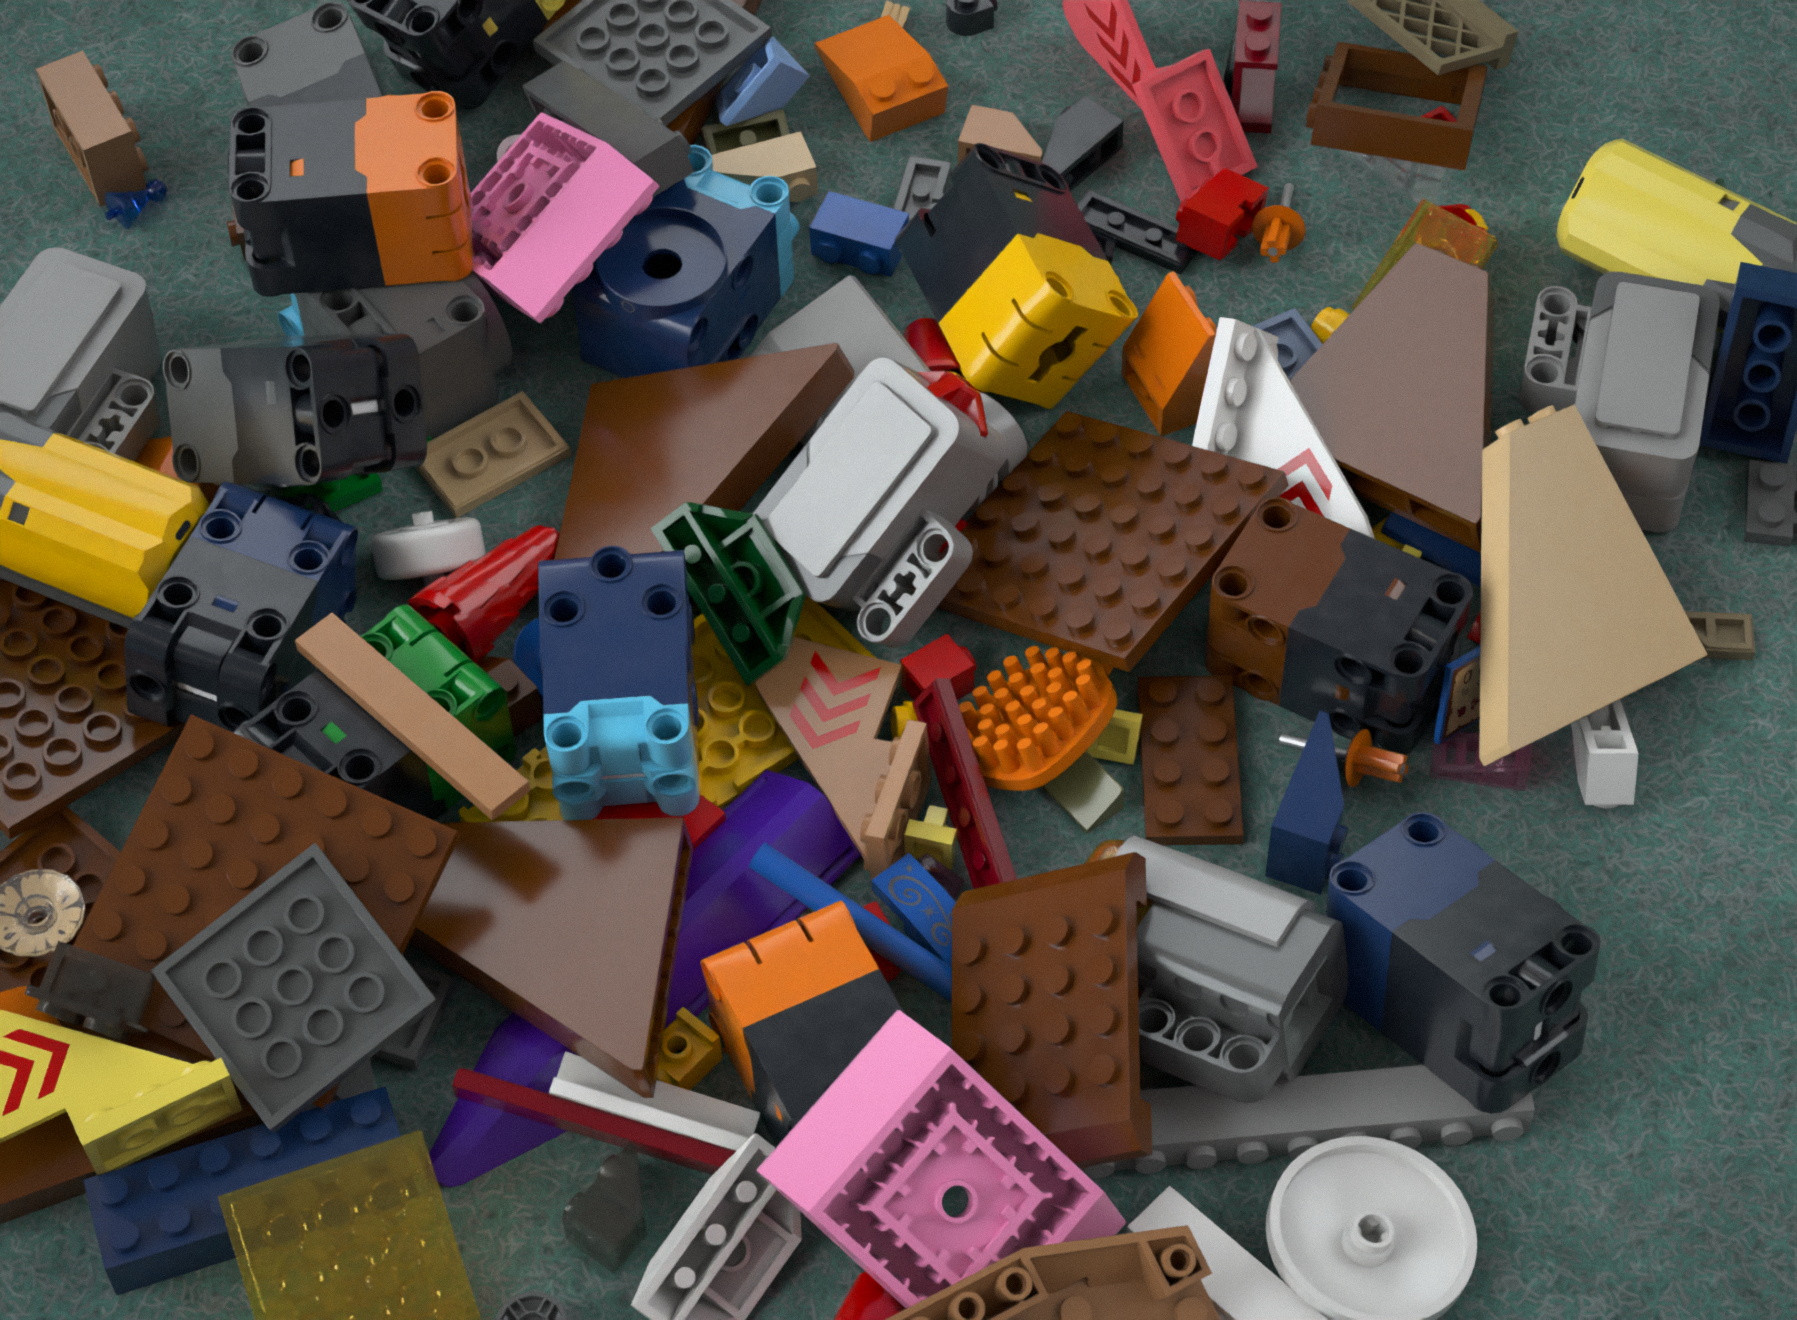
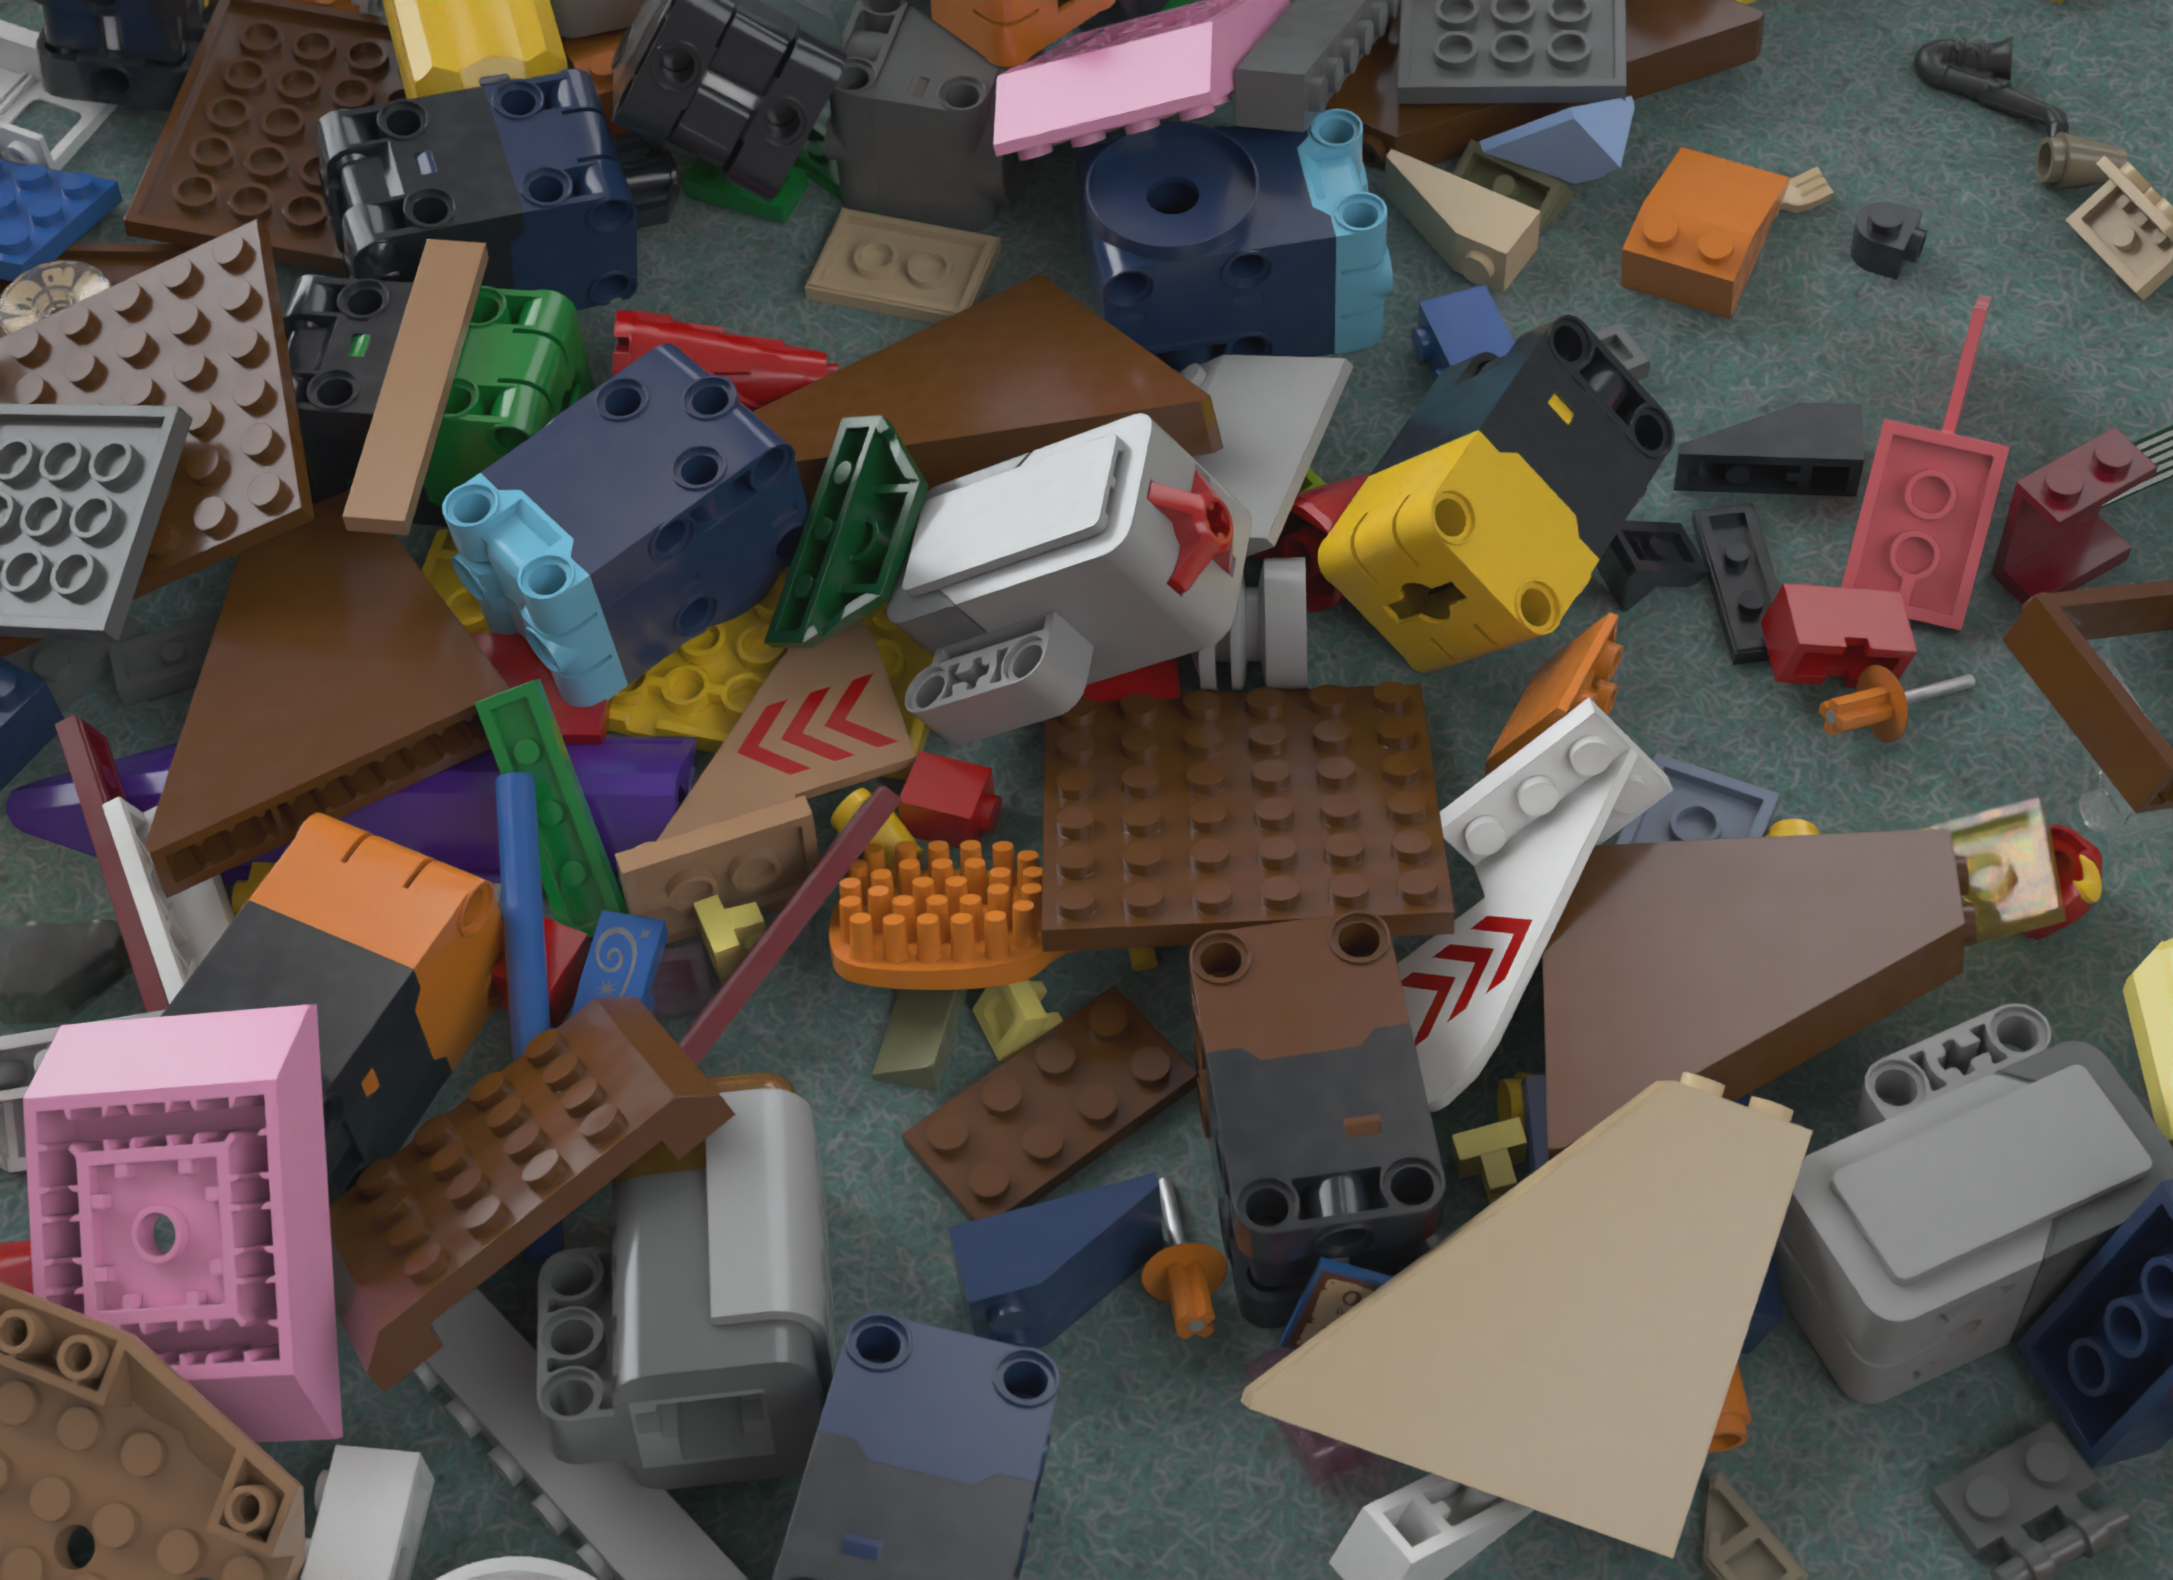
camera: 55 degrees right, 0 degrees up
(427, 547) = (726, 291): white wheel -> none
(739, 834) = (570, 848): none -> green plate
(998, 130) = (1717, 375): medium nougat slope -> none

